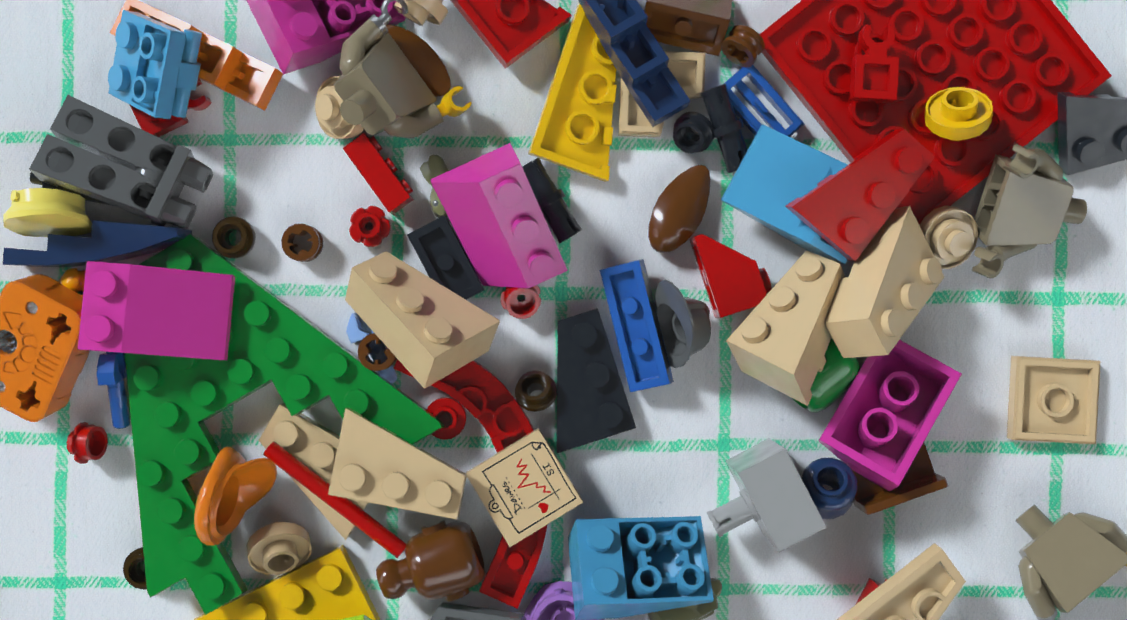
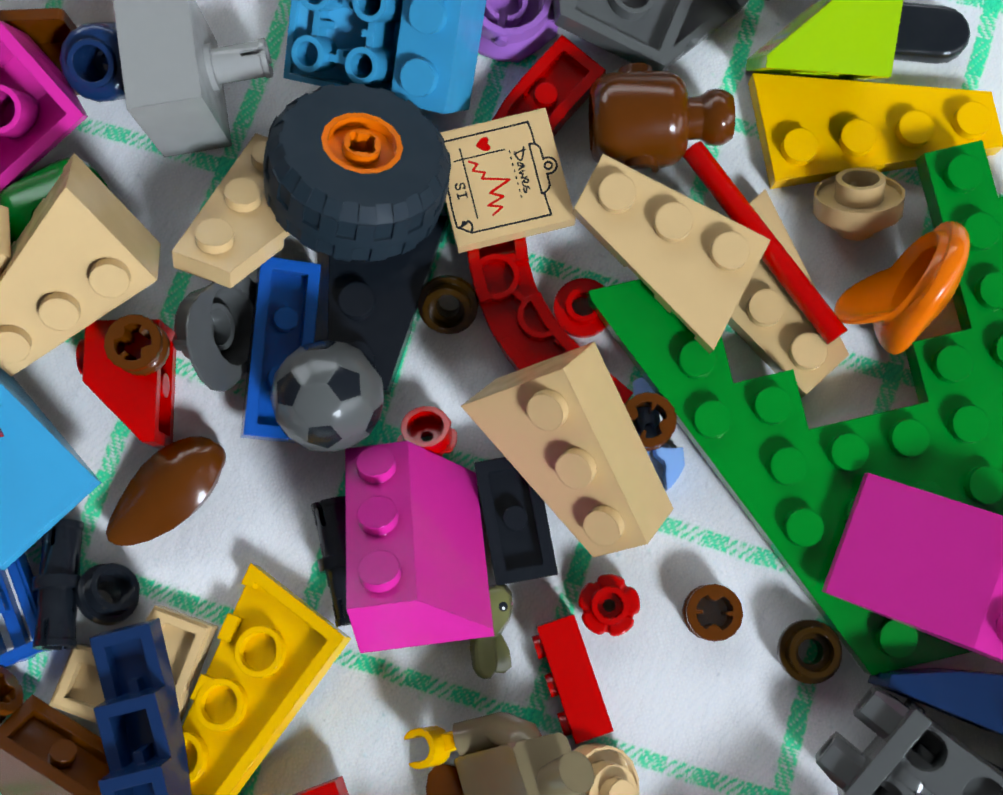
camera: 155 degrees left, 10 degrees down
(589, 300) = (327, 396): none -> dark grey piece
(621, 458) = (355, 172): none -> black wheel
(683, 418) = (235, 225): none -> tan wing
(738, 299) = (122, 334): none -> reddish brown bush

